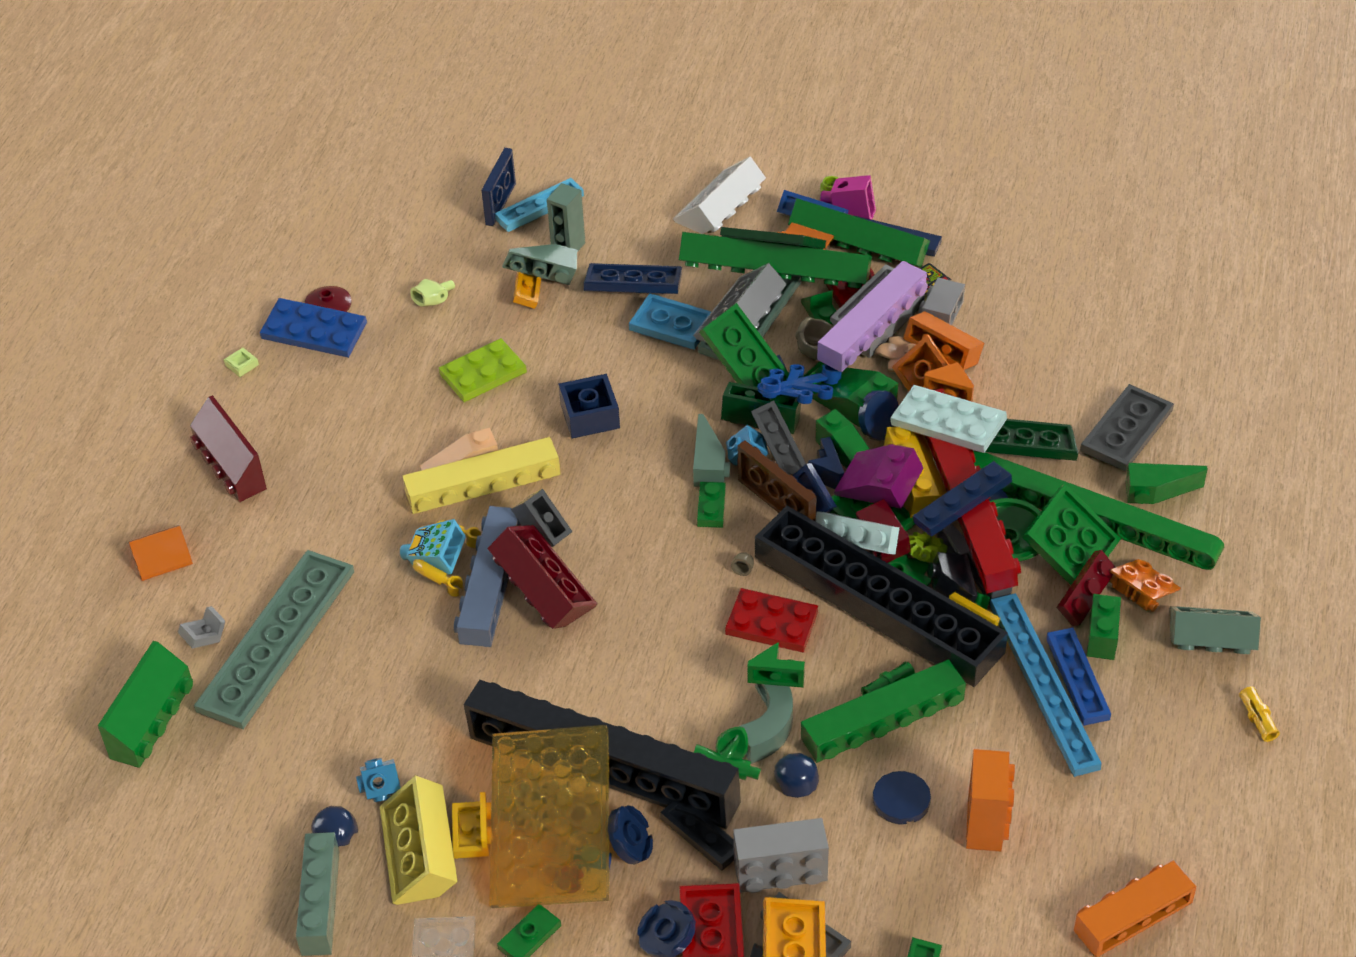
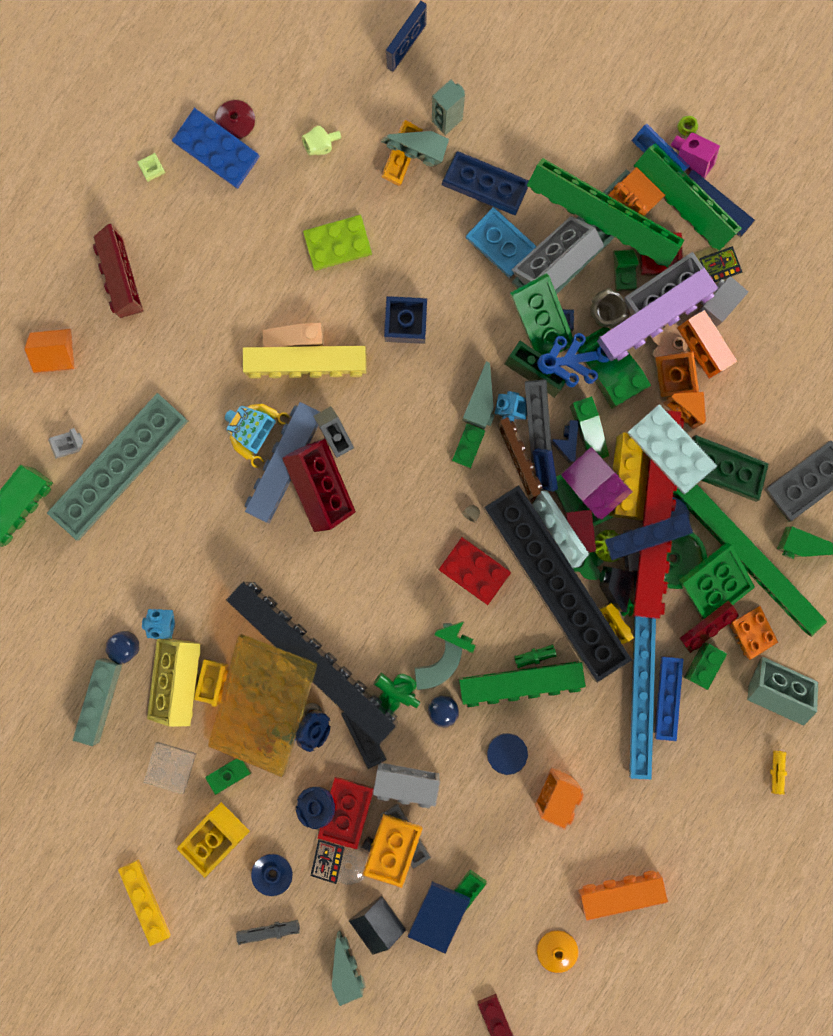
camera: 20 degrees right, 40 degrees up
(529, 208) = (437, 63): medium azure plate -> none
(721, 197) = (590, 108): white slope -> none
(773, 237) = (609, 199): dark green tile -> none
(877, 413) = (624, 411): dark blue tile -> none

